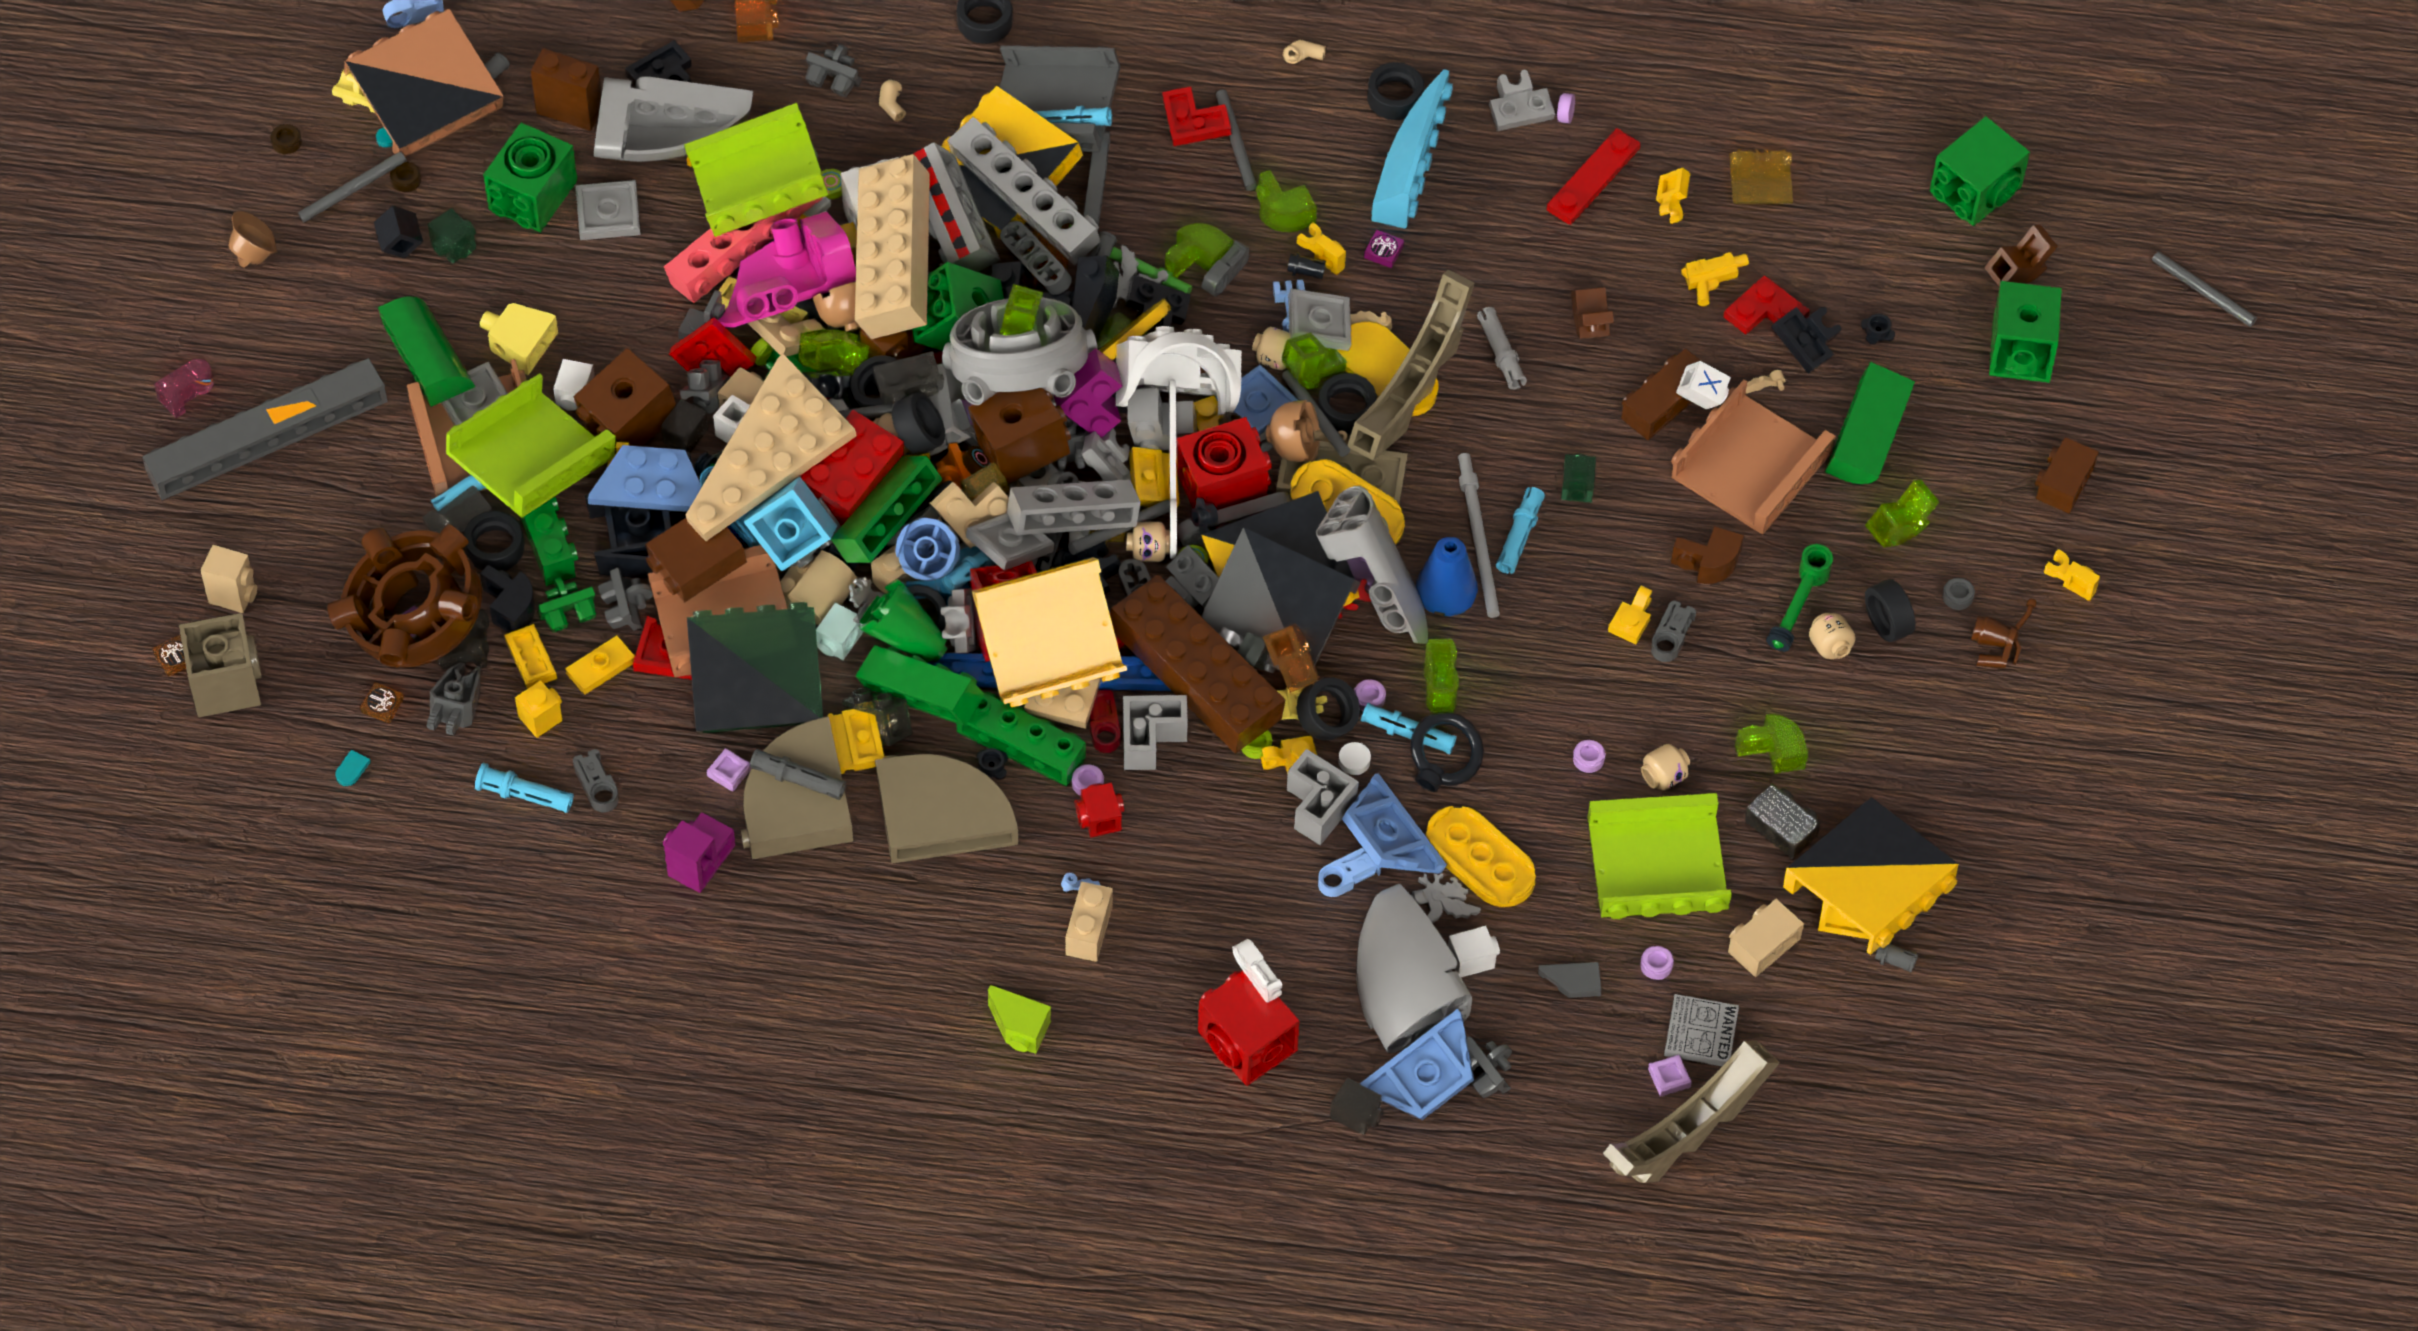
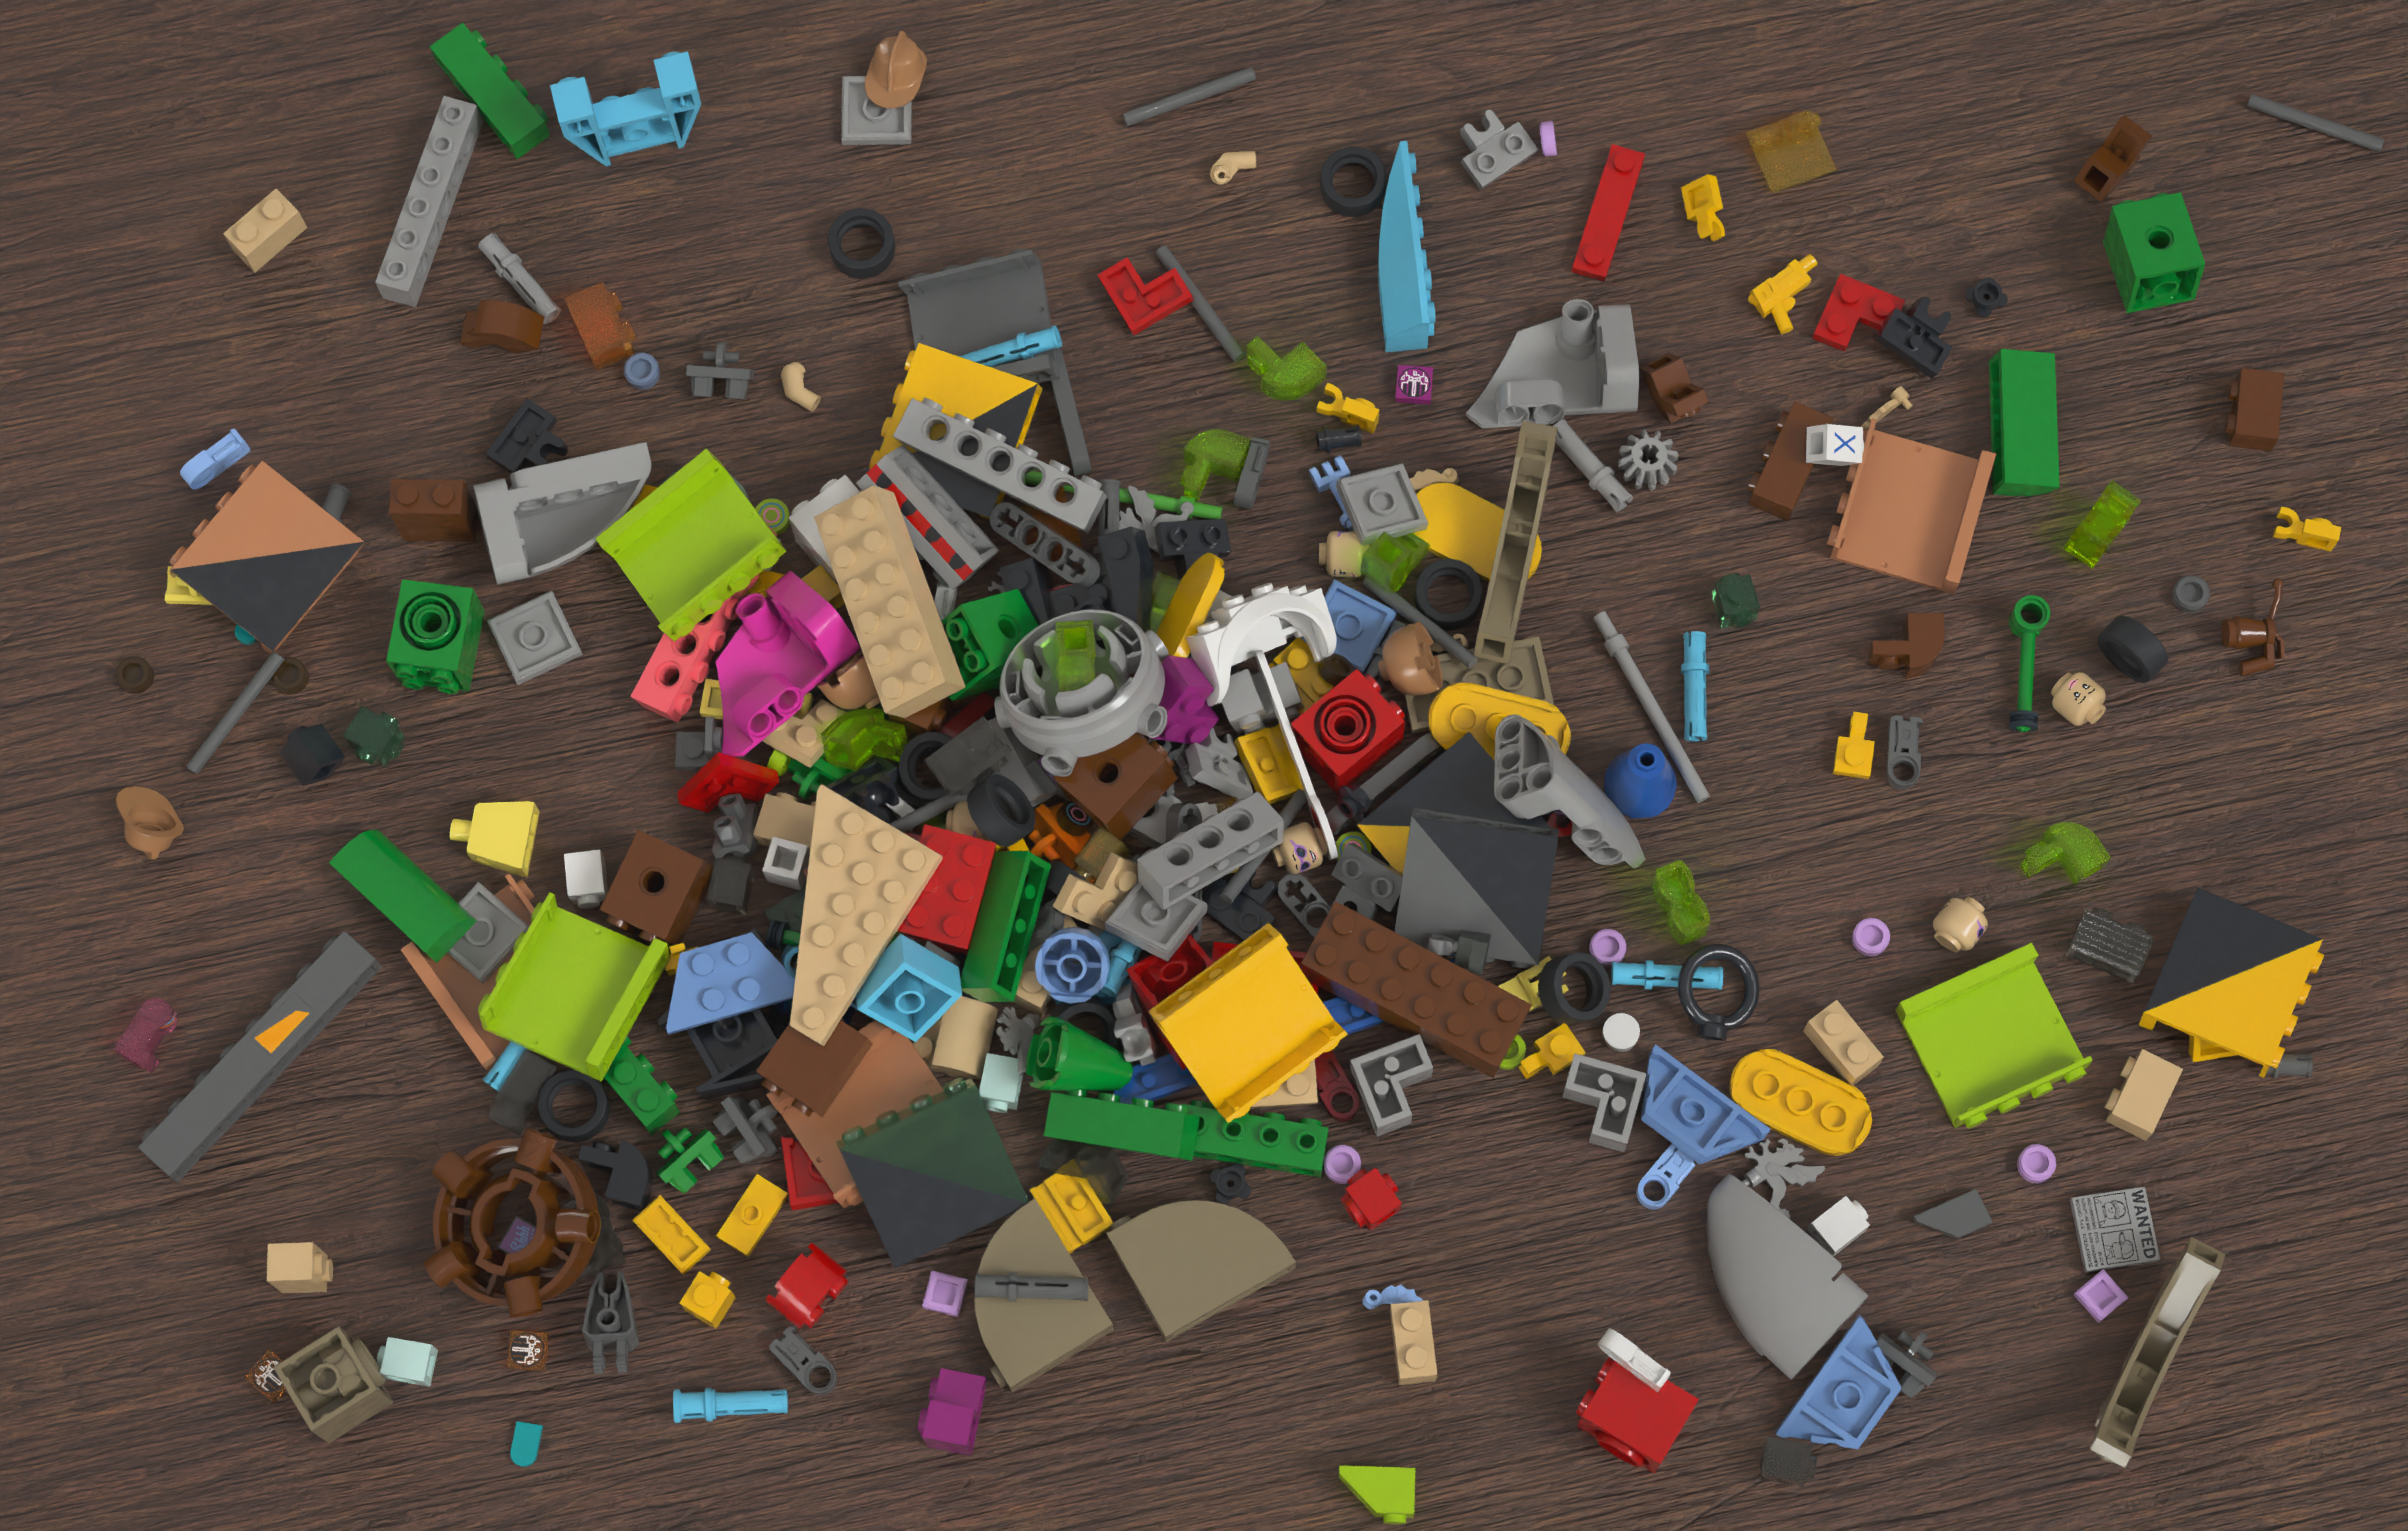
camera: 15 degrees left, 15 degrees up
(285, 677) = (407, 1361): none -> light aqua brick
(621, 721) = (807, 1286): none -> red brick
(773, 52) = (641, 371): none -> sand blue tile
(1291, 652) = (1519, 950): clear orange brick -> none
(1516, 271) = (1564, 369): none -> light grey panel
(1532, 820) = (1843, 1043): none -> tan brick
(1550, 357) = (1649, 447): none -> light grey gear
(1979, 171) = (2031, 67): green brick -> none

